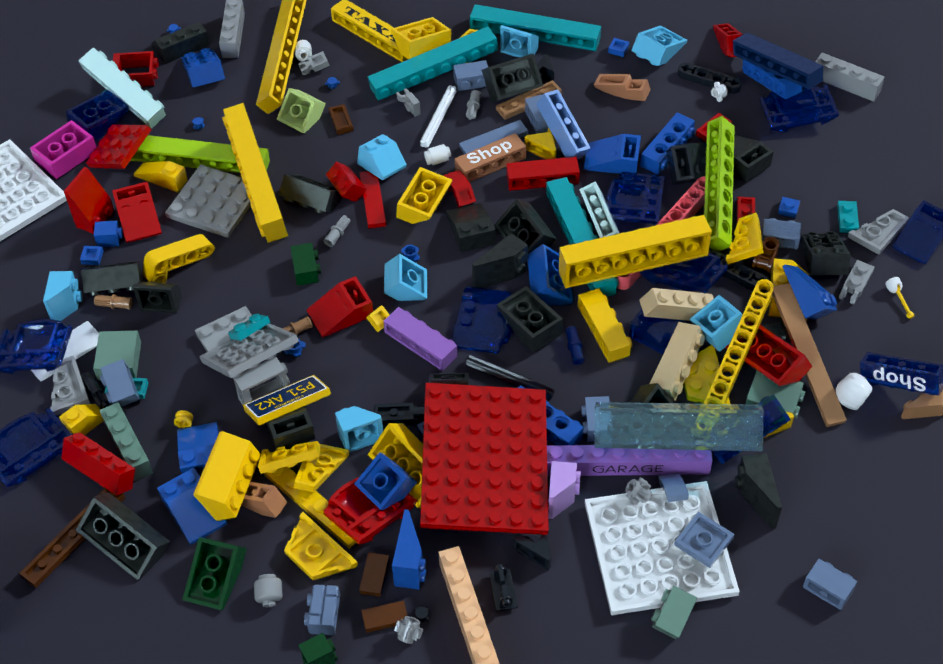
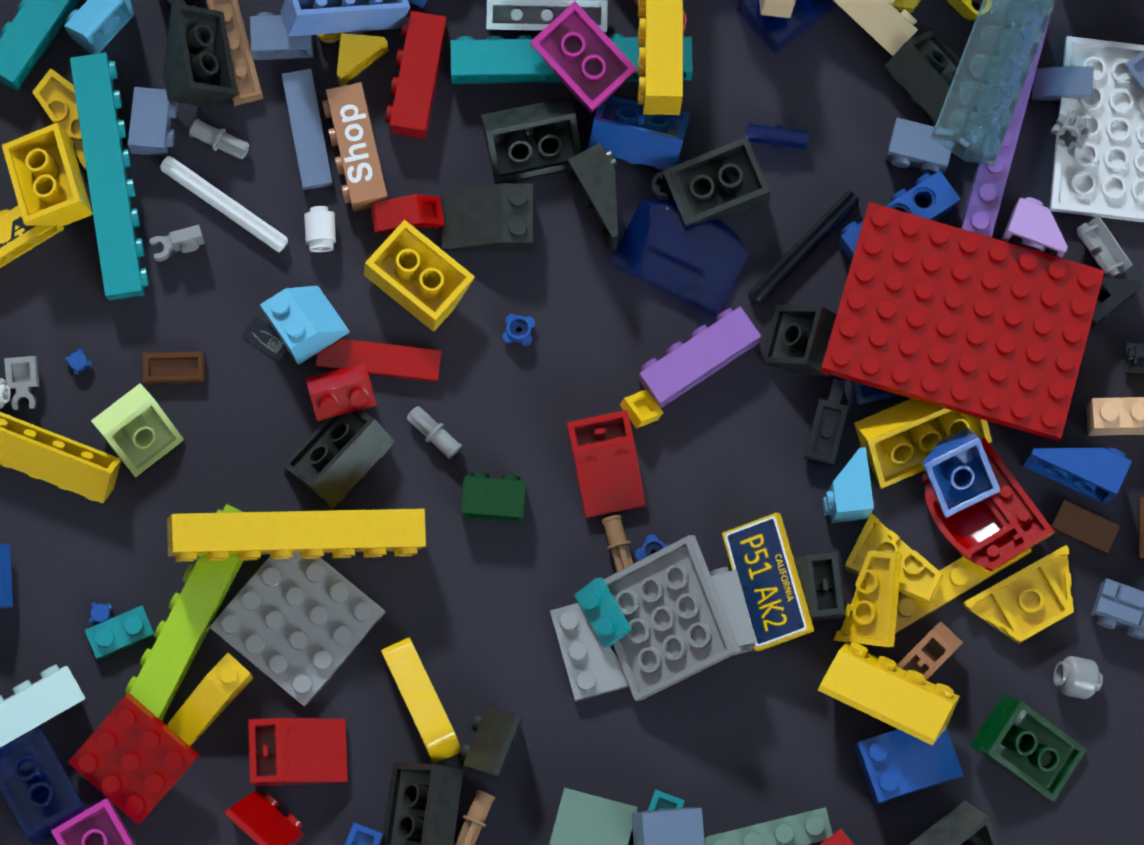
camera: 80 degrees left, 25 degrees up
(107, 233) = (325, 808): blue brick -> none
(183, 419) = (747, 746): yellow bush -> none
(189, 130) = (119, 632): none -> teal plate
(195, 446) = (806, 731): blue slope -> none
(405, 279) = (576, 351): medium azure slope -> none
(561, 541) = (1103, 247): none -> light grey hinge
(577, 222) = (582, 57): none -> dark pink brick
(604, 325) = (754, 81): yellow brick -> none

